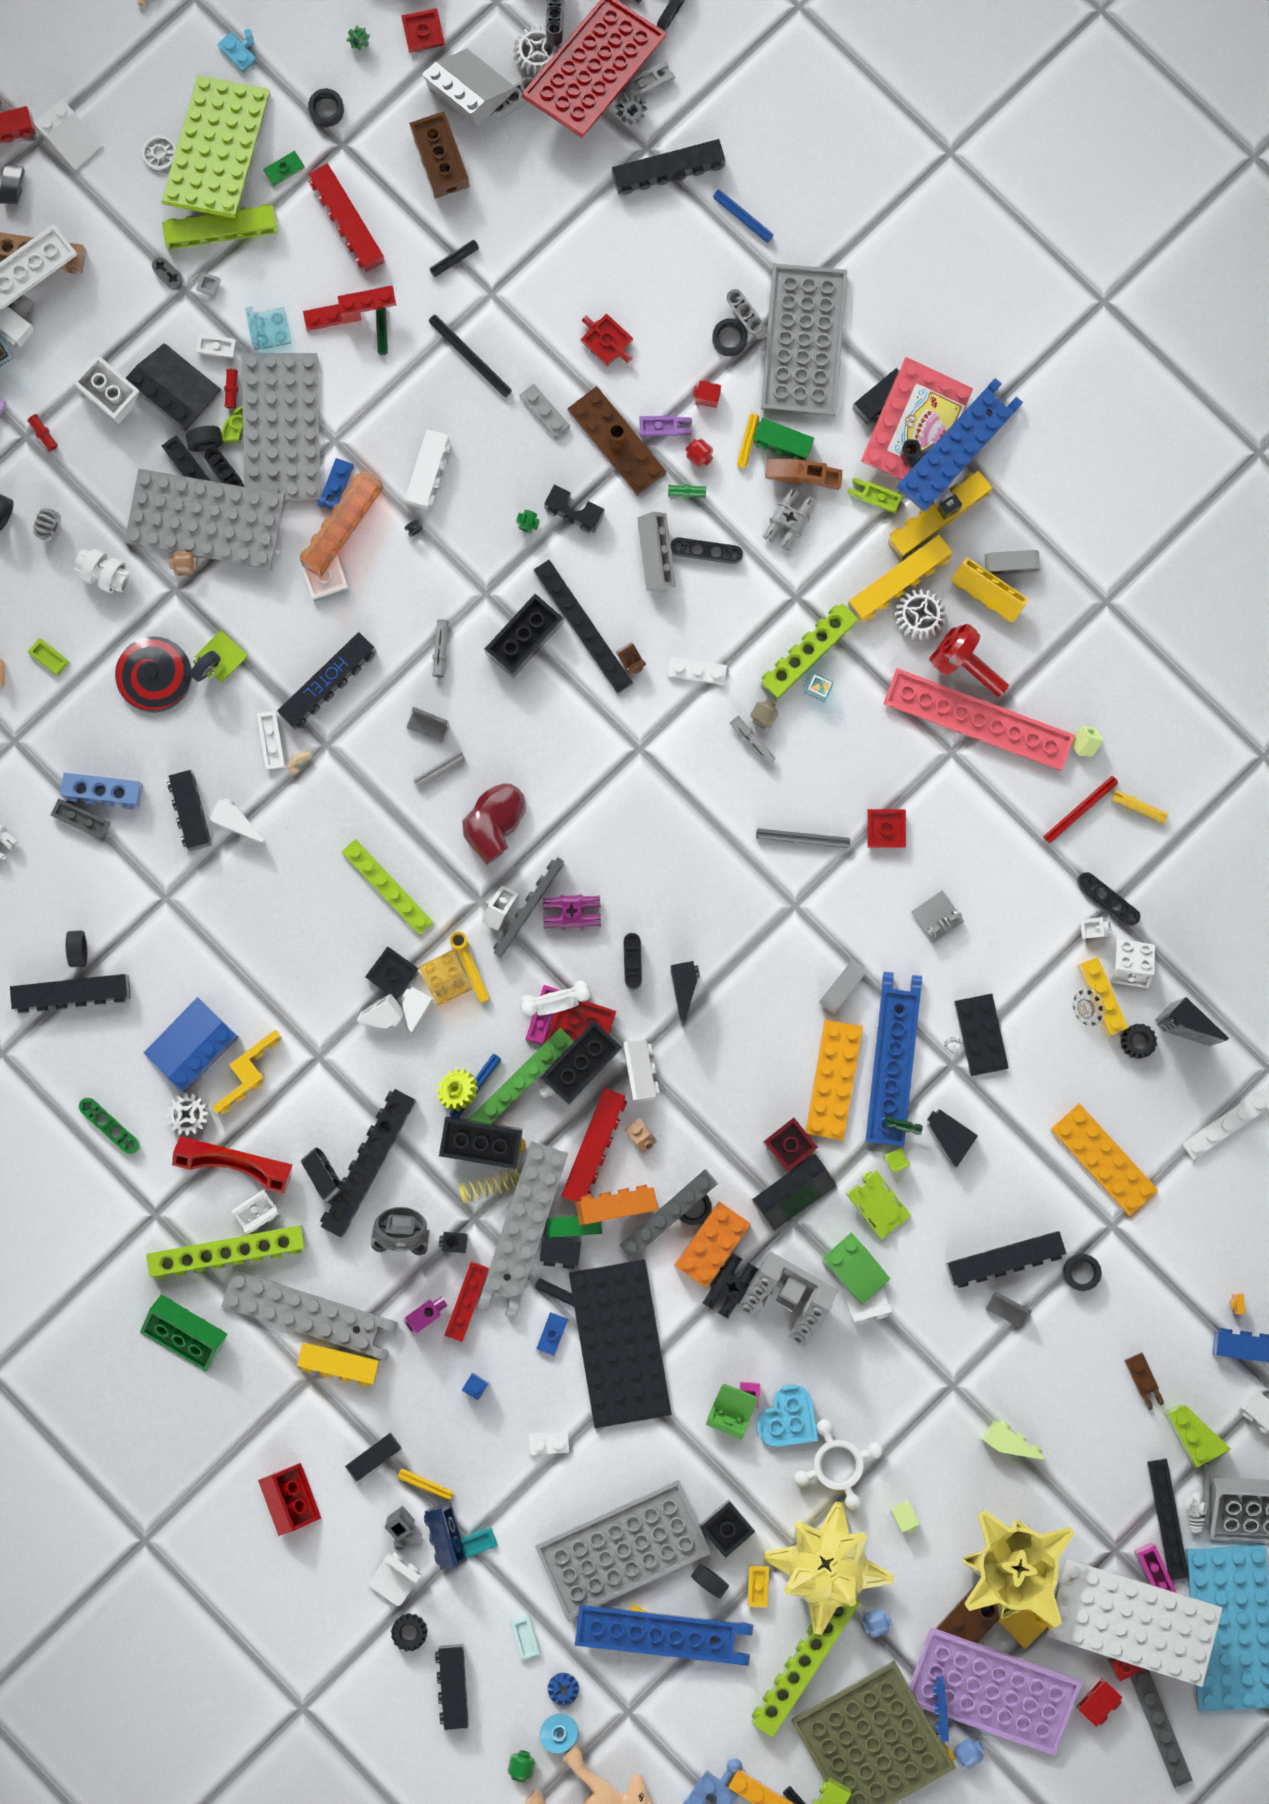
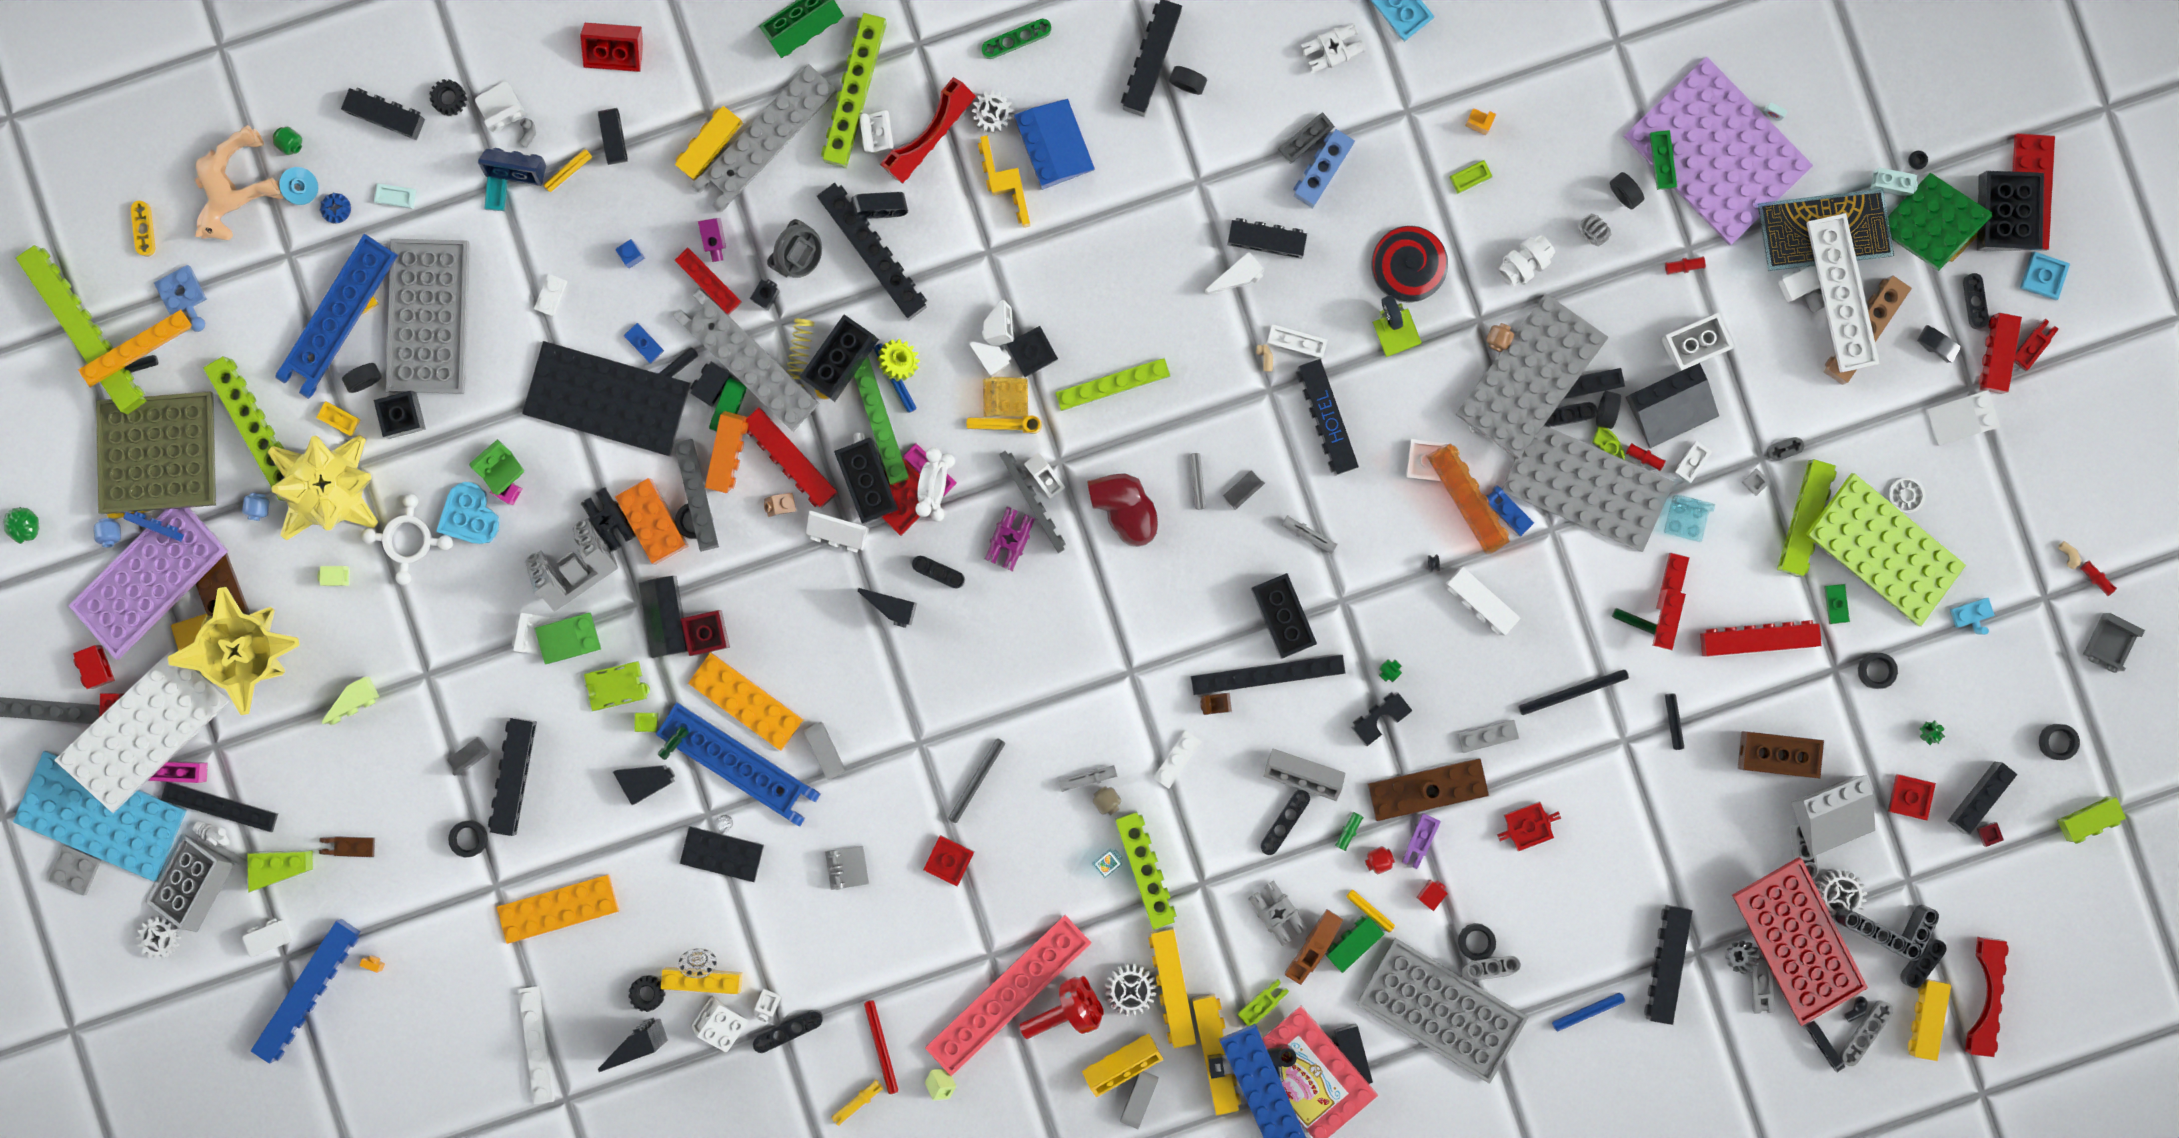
camera: 120 degrees right, 5 degrees up
(399, 1523) = (543, 132): brick -> none

